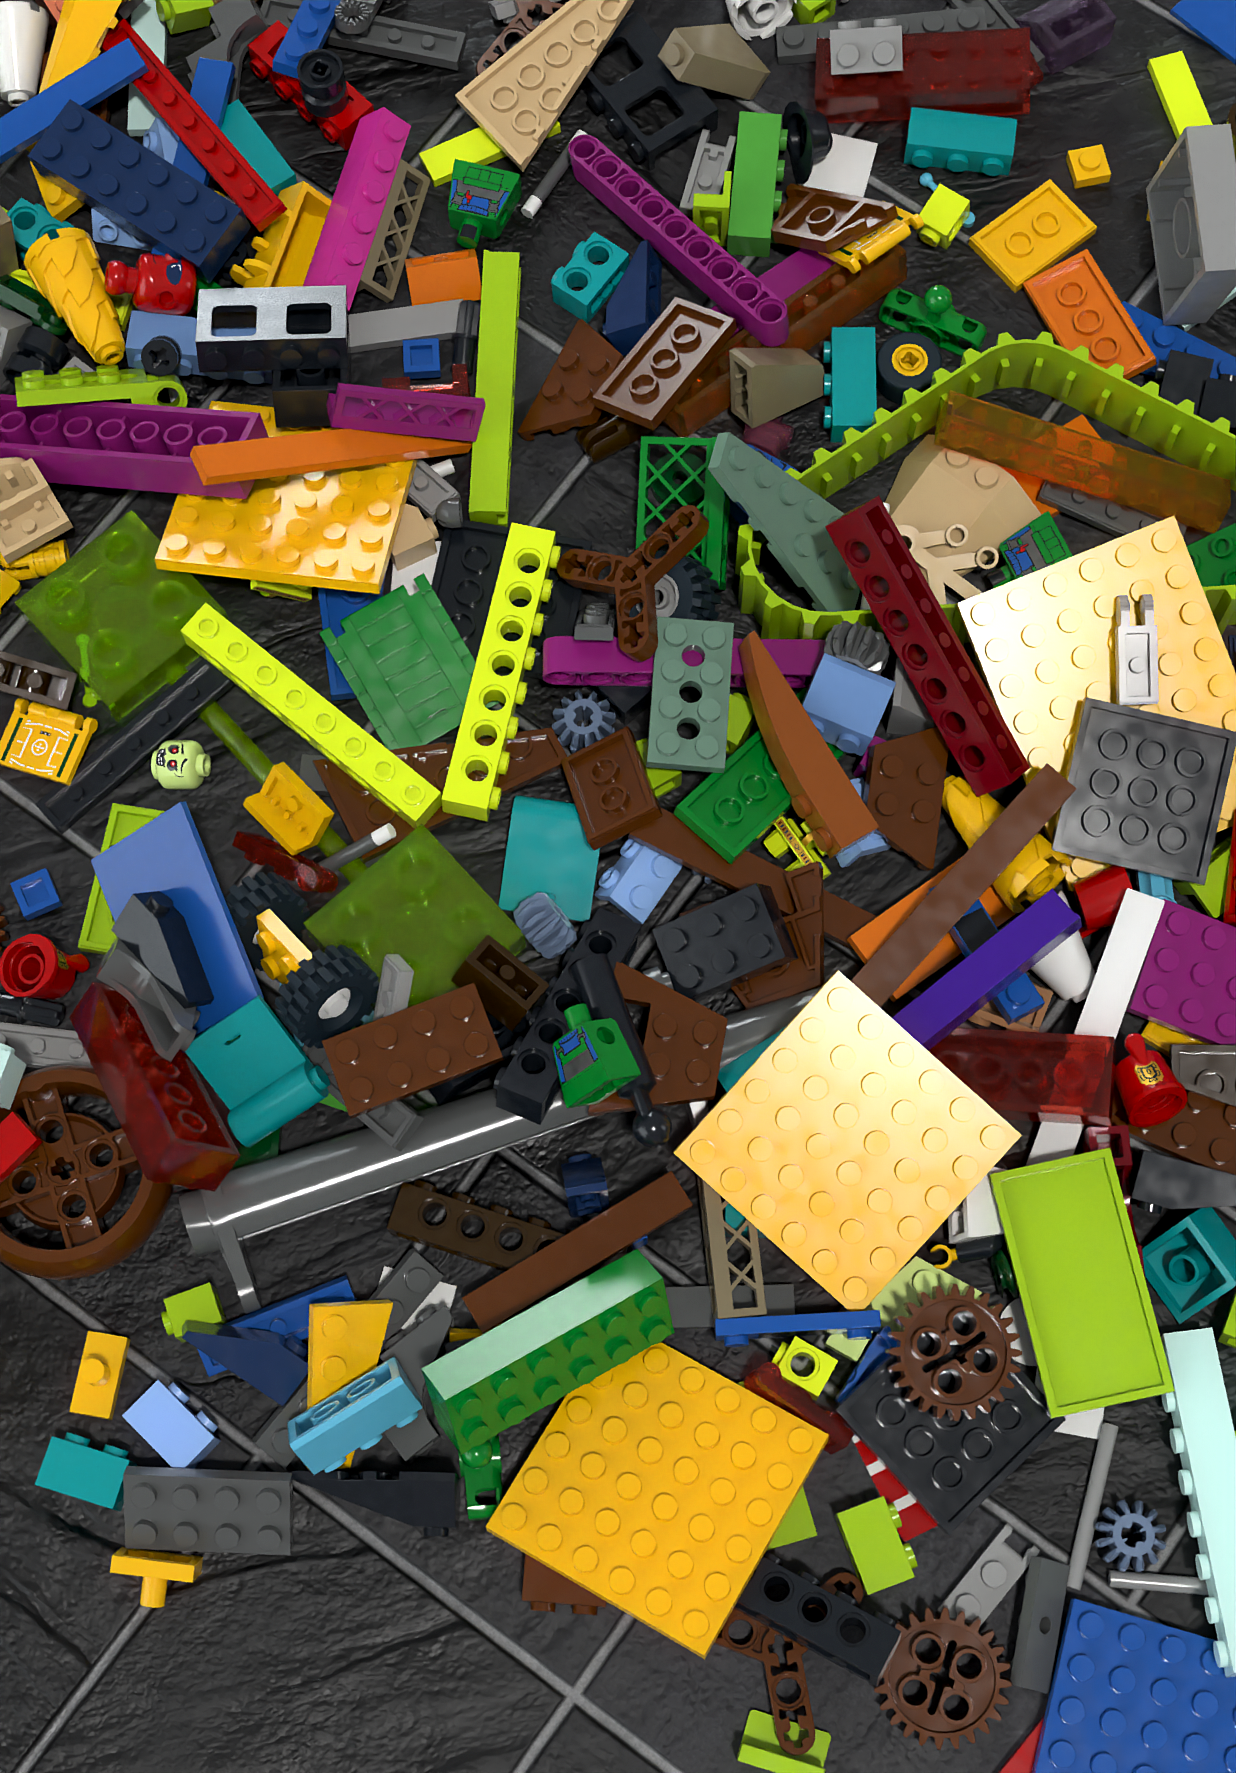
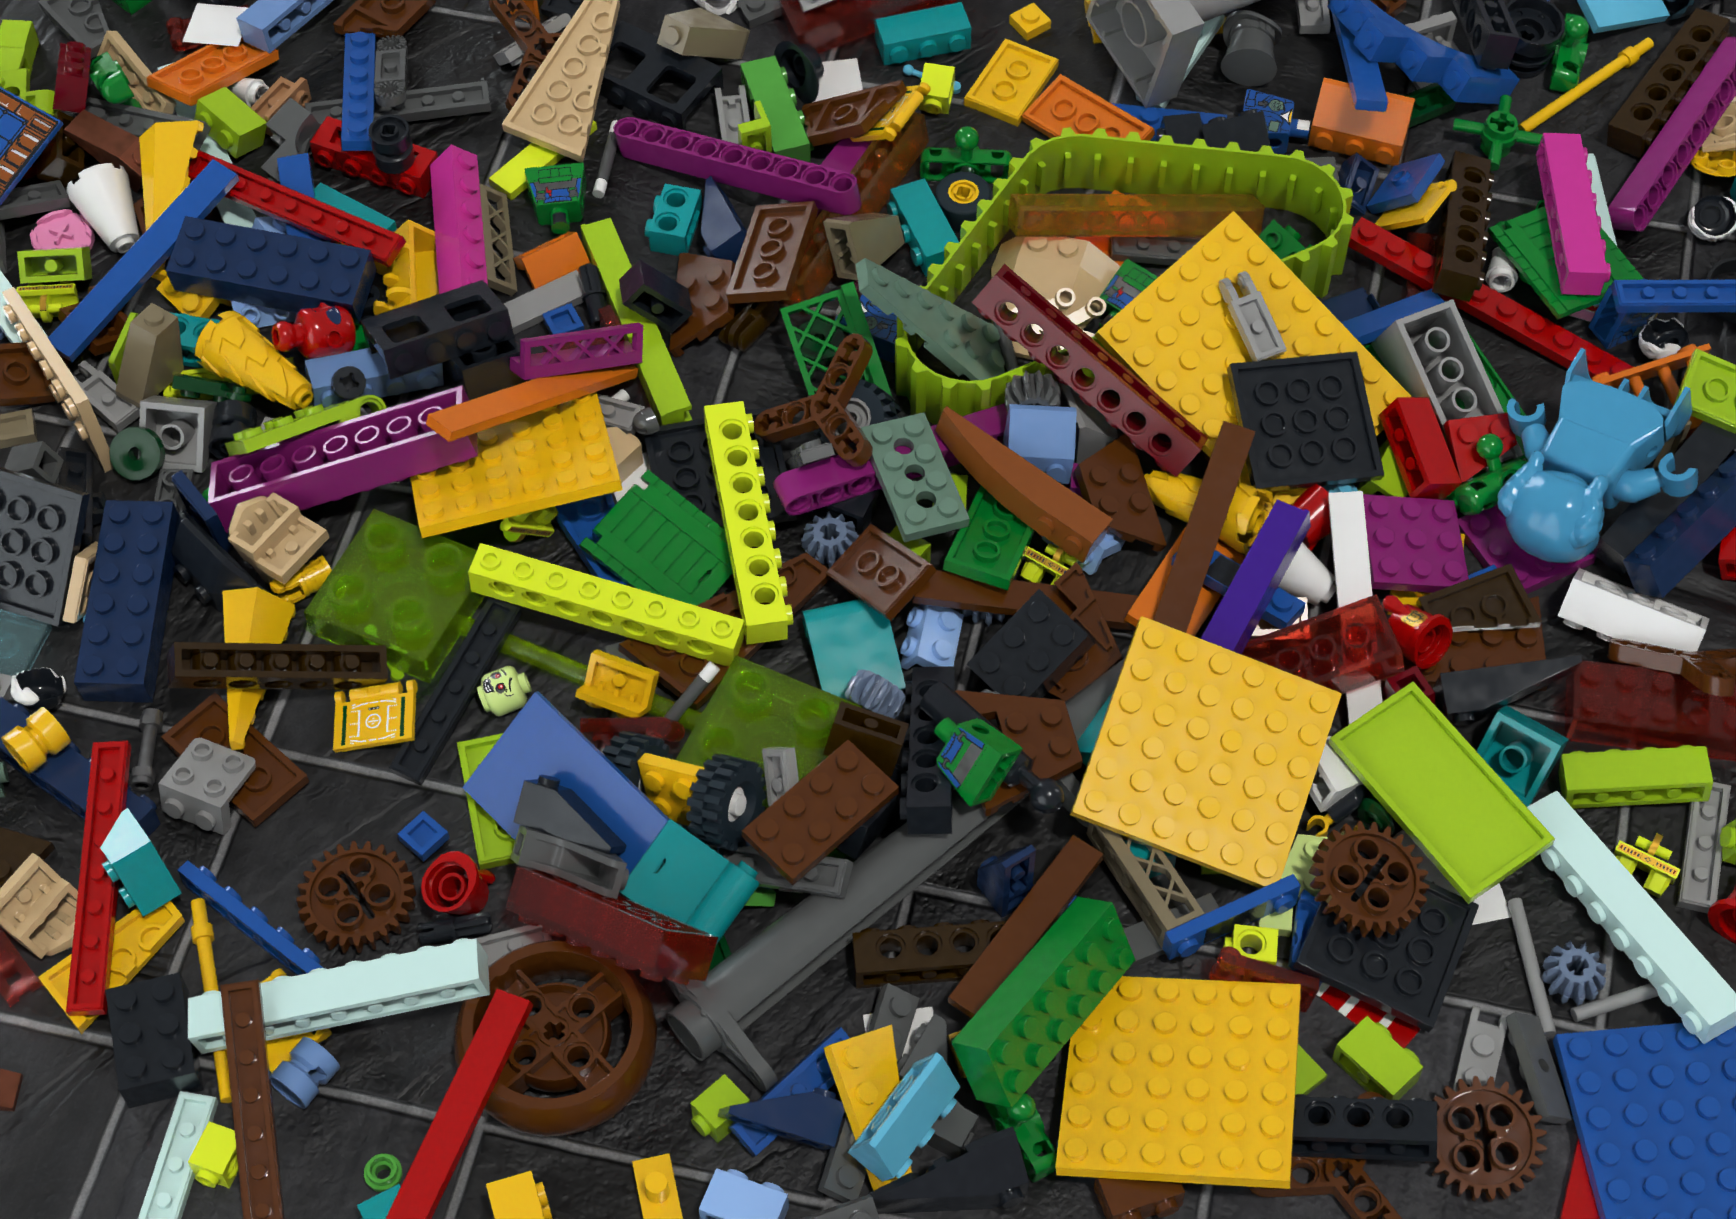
camera: 25 degrees left, 15 degrees down
(520, 370) = (655, 296): none -> black brick

